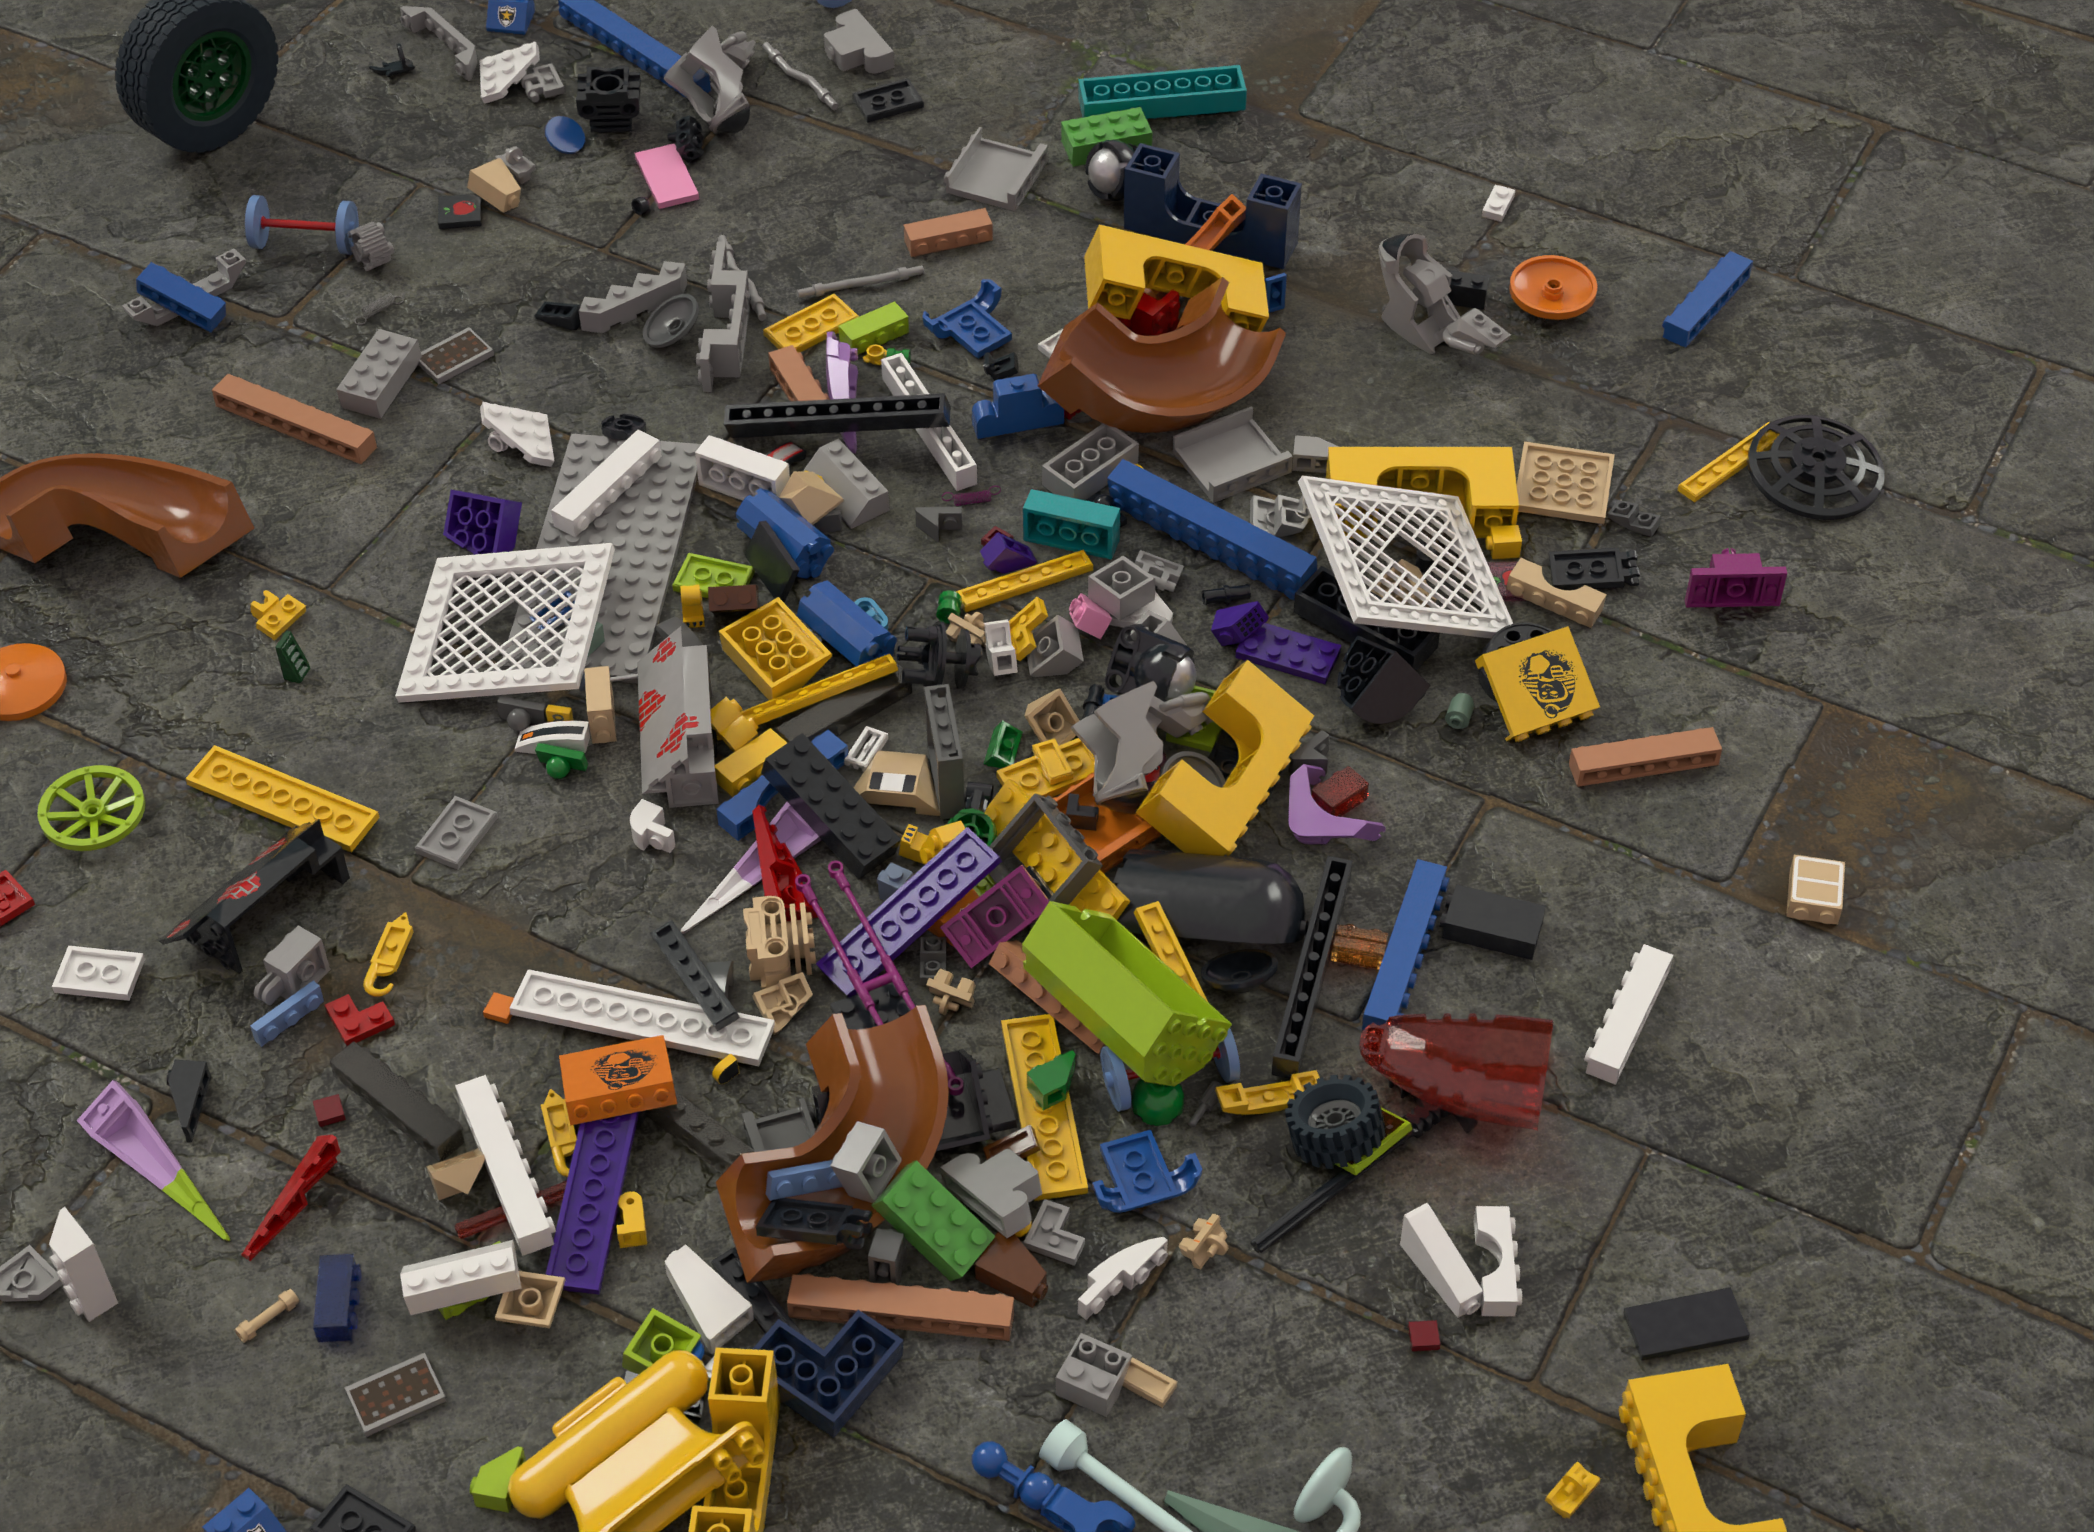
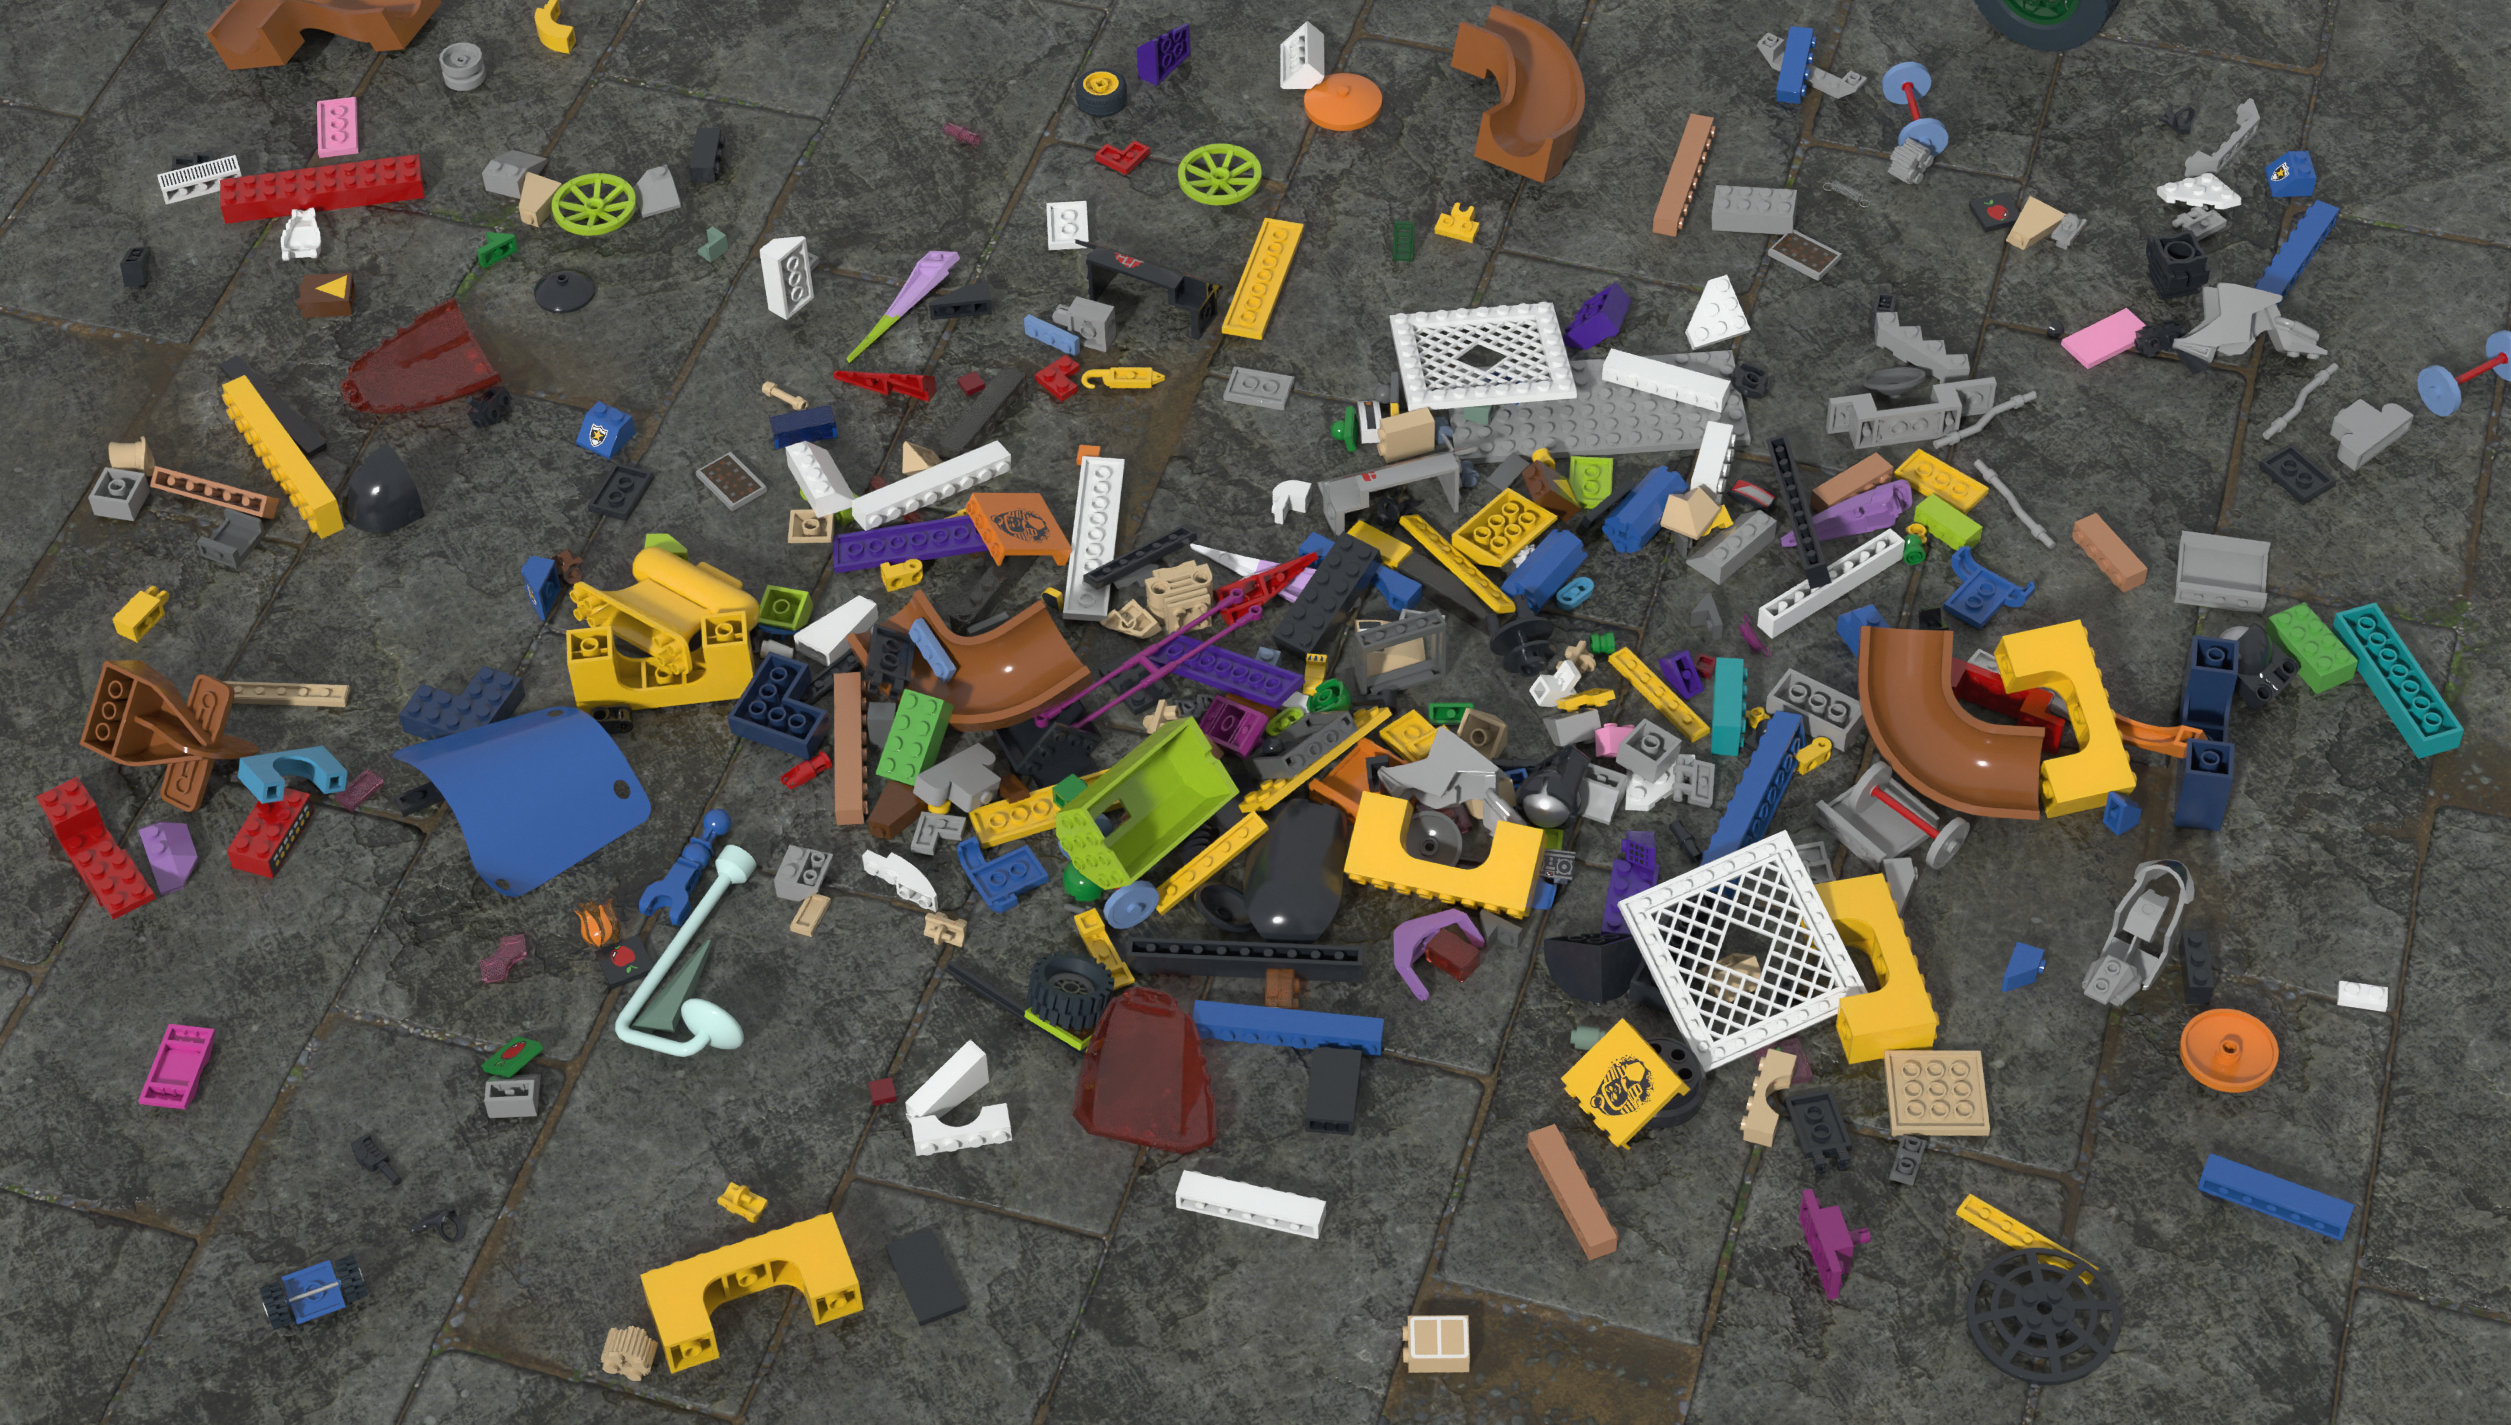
camera: 80 degrees right, 0 degrees up
(564, 134) = (2126, 253): blue piece -> none
(732, 725) = (1404, 518): yellow brick -> none
(866, 1162) = (945, 675): light grey brick -> none
(922, 1354) = (806, 770): none -> red piece
(938, 839) = (1297, 665): yellow brick -> none
(1286, 405) = (1872, 787): none -> light grey piece
(1431, 395) = (2023, 966): none -> blue slope
(1504, 542) = (1830, 1050): yellow brick -> none

